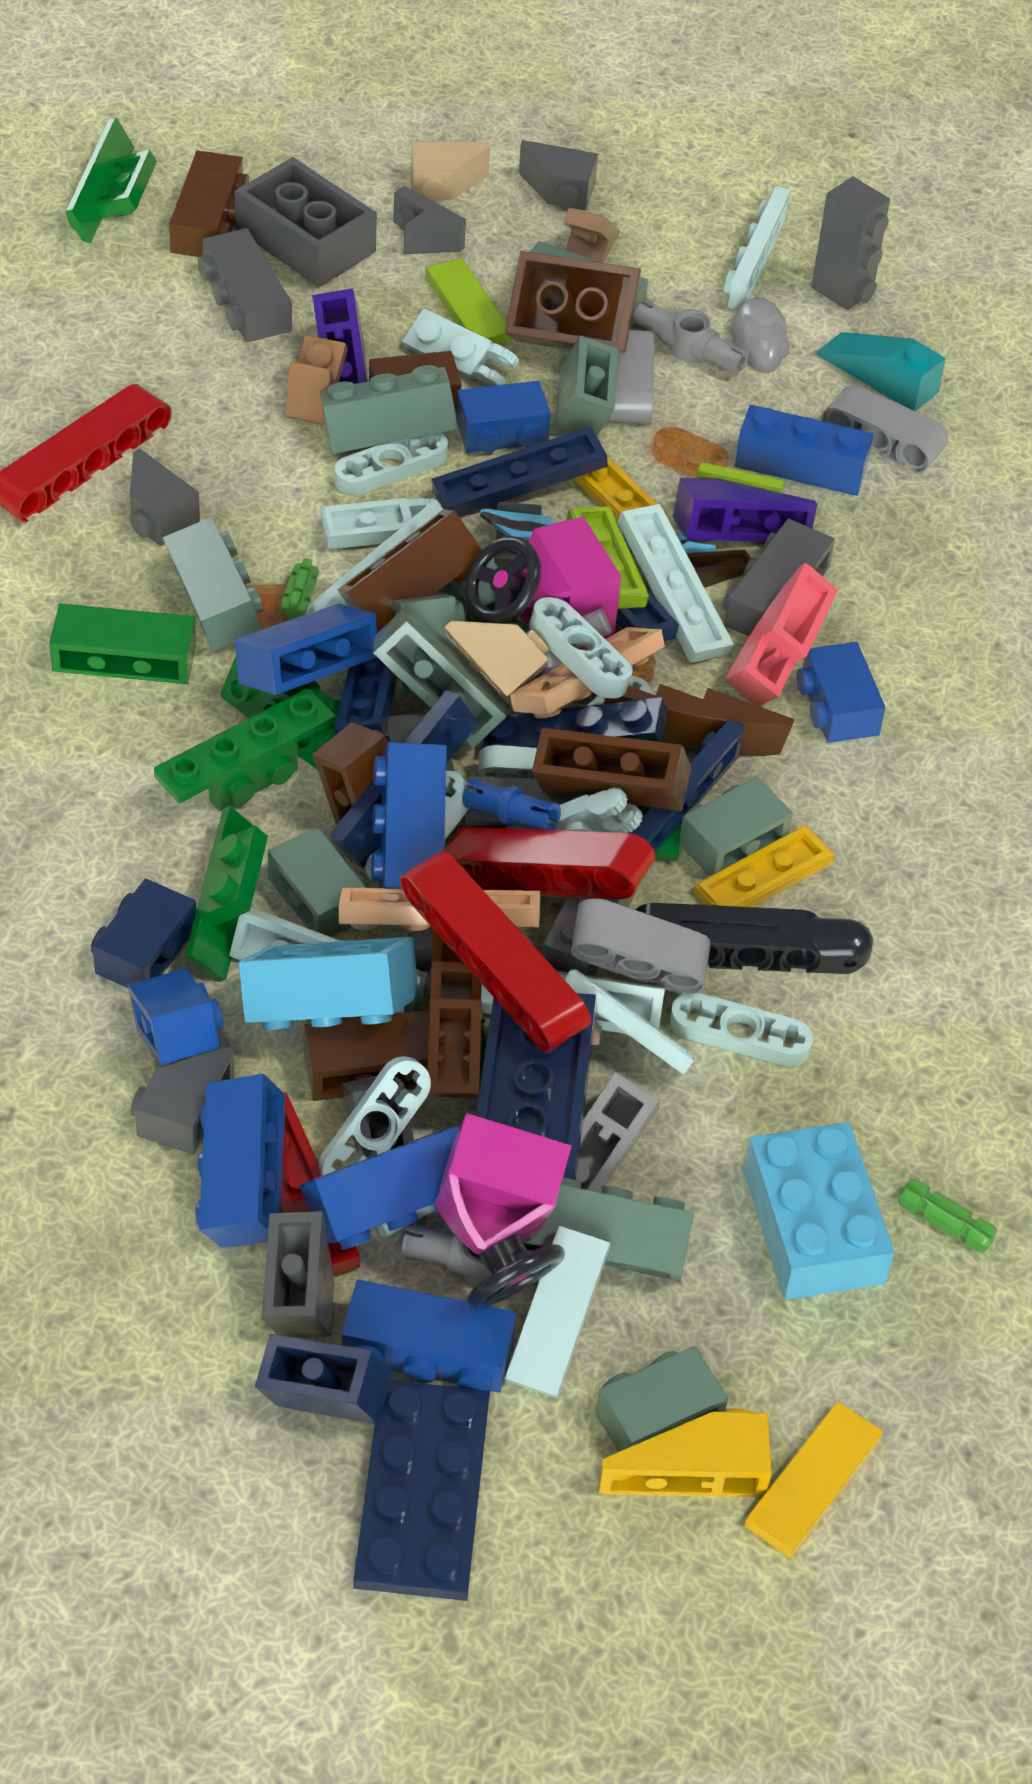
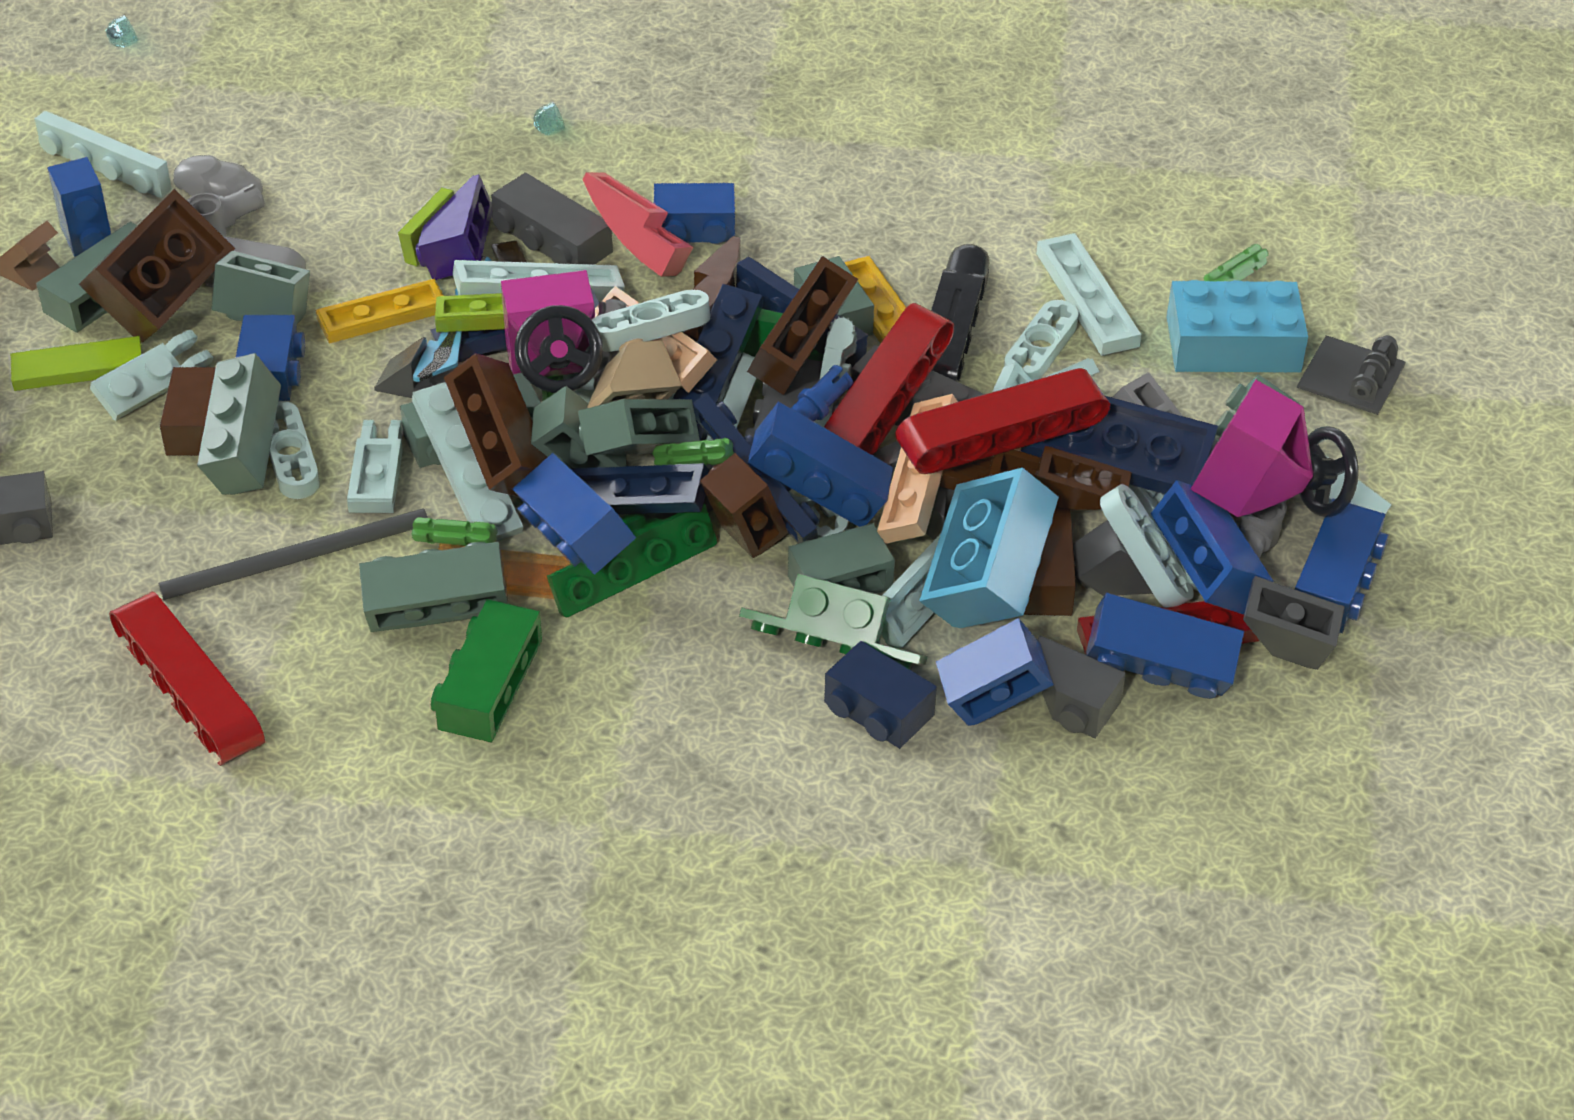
camera: 75 degrees left, 5 degrees down
(160, 499) = (284, 622): dark grey slope -> none
(246, 755) = (678, 584): green bracket -> none
(258, 495) = (289, 555): none -> dark grey piece
(316, 370) = (165, 479): medium nougat slope -> none
(324, 1378) = (1391, 621): dark blue brick -> none
(340, 321) = (118, 453): dark purple slope -> none
(403, 718) = (694, 452): none -> bright green axle
(423, 1491) = (1471, 597): dark blue plate -> none
(520, 472) = (353, 357): dark blue plate -> none
(640, 946) = (982, 356): light grey beam -> none
(656, 240) = (79, 204): none -> blue brick
(658, 1397) = (1407, 444): sand green brick -> none
(687, 450) = (358, 252): clear orange beam -> none
(704, 1457) = (1454, 430): yellow slope -> none
(789, 1350) = (1354, 373): none -> dark grey hinge
(803, 449) = (393, 177): blue brick -> none
(813, 1479) = (1465, 383): yellow tile -> none
(838, 1064) = (1087, 289): none -> light aqua plate
(850, 243) = (163, 77): dark grey brick -> none
(889, 364) = (297, 109): teal slope -> none
(898, 431) = (378, 127): light grey beam -> none
(962, 218) = (121, 32): none -> clear light blue hinge
(963, 551) = (548, 119): none -> clear light blue hinge

